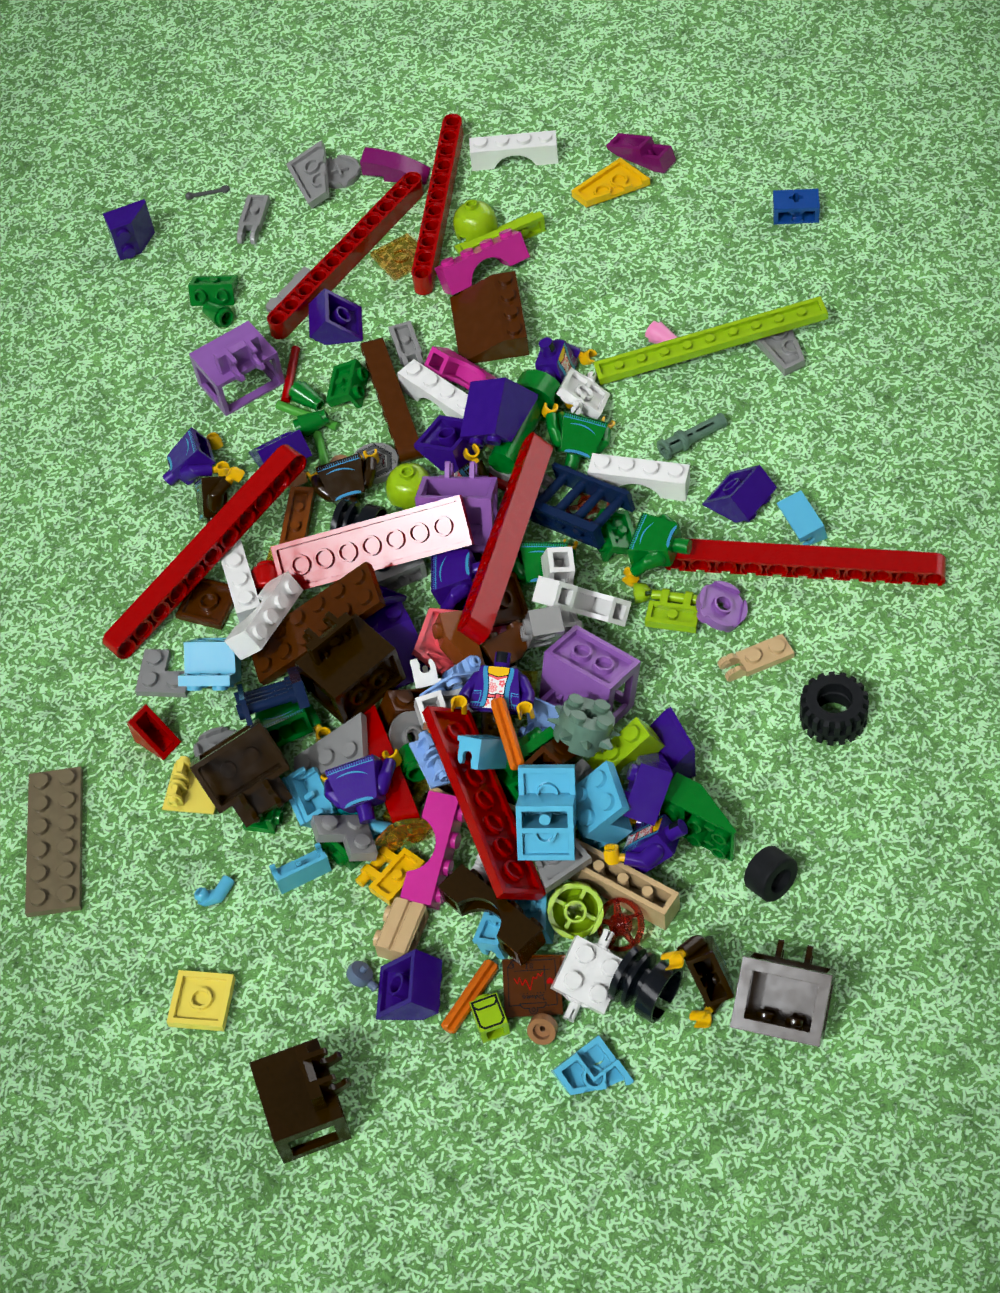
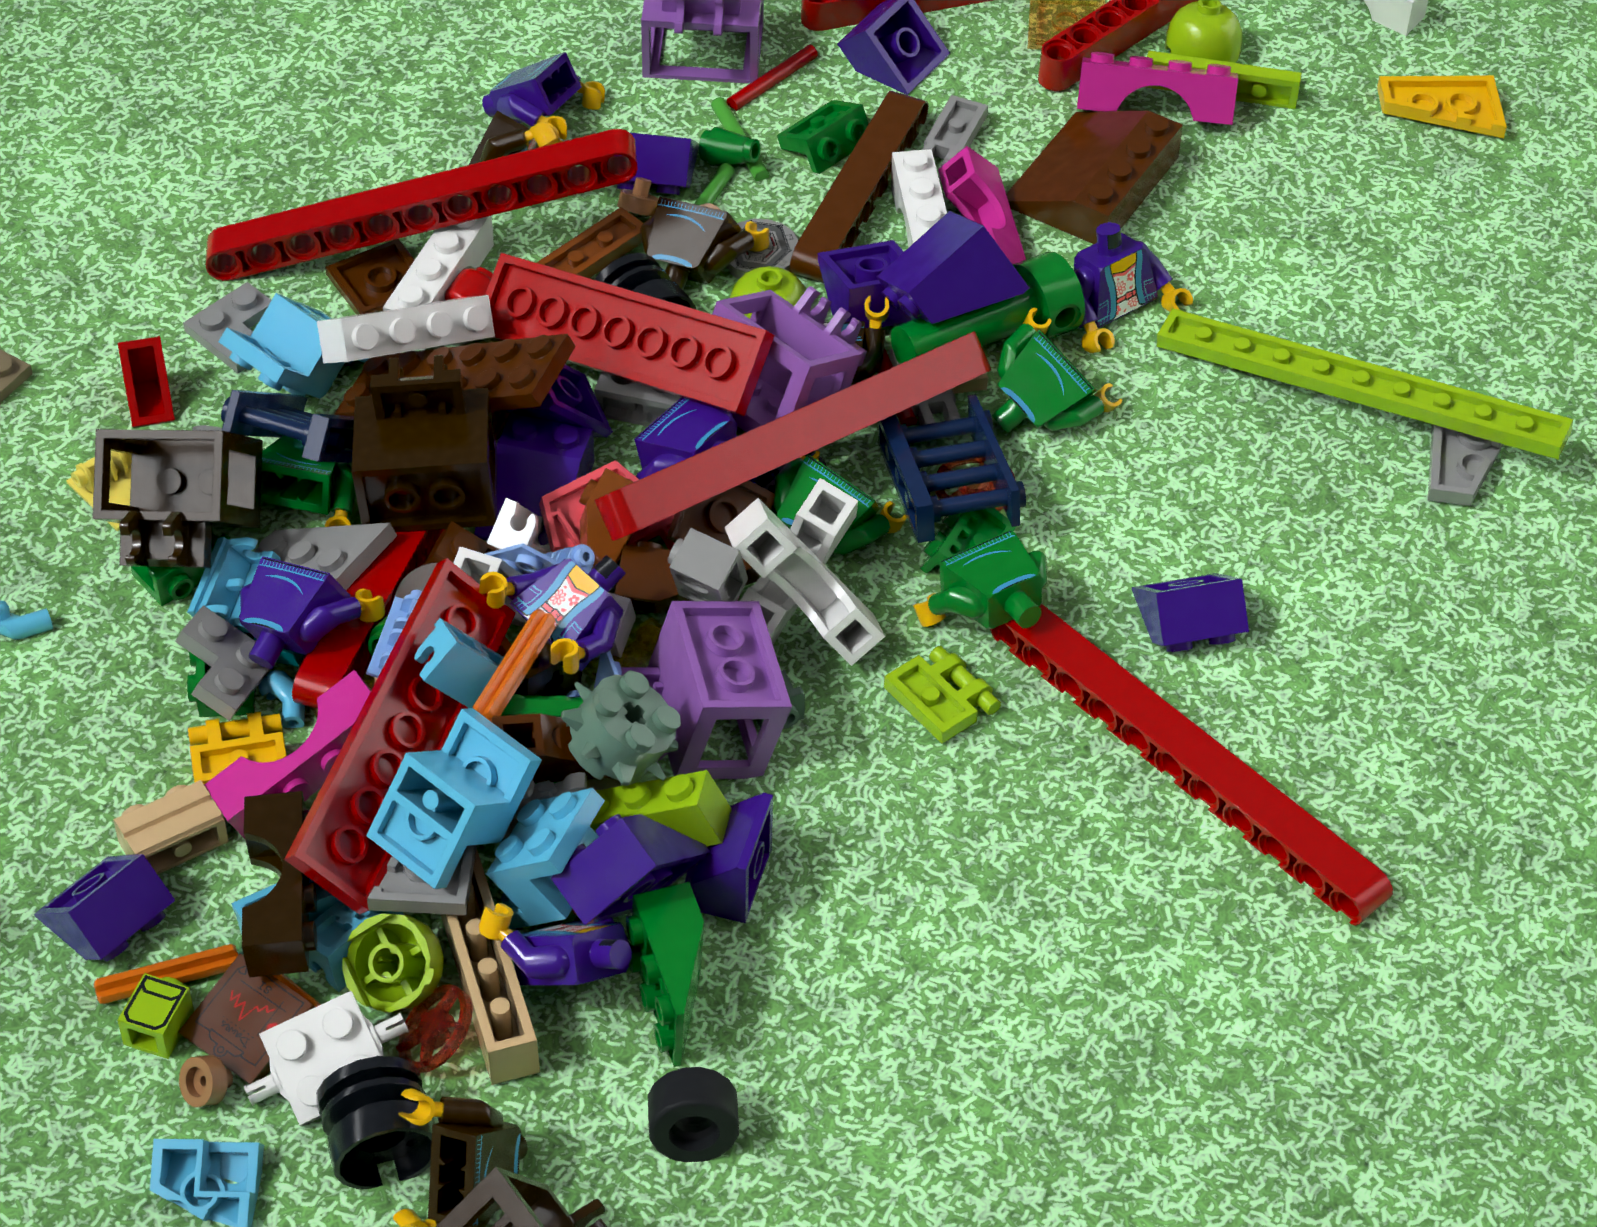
camera: 30 degrees right, 5 degrees down
(301, 870) = (137, 669): medium azure hinge -> none
(305, 395) = (759, 111): green cone -> none
(361, 975) = (69, 845): sand blue piece -> none
(405, 830) = (279, 702): clear yellow slope -> none
(583, 393) = (1108, 335): white plate -> none
(639, 592) = (919, 638): lime hinge -> none
(642, 151) = (1536, 89): magenta slope -> none
(658, 333) = (1304, 327): bright pink cone -> none
(664, 478) = (1106, 515): white arch -> none
(682, 439) = (1189, 486): sand green pin -> none
(716, 617) = (985, 744): medium lavender plate -> none
(757, 657) = (987, 832): tan hinge -> none
(802, 518) = (1243, 698): medium azure hinge -> none
(830, 725) = (1009, 1000): black tyre -> none

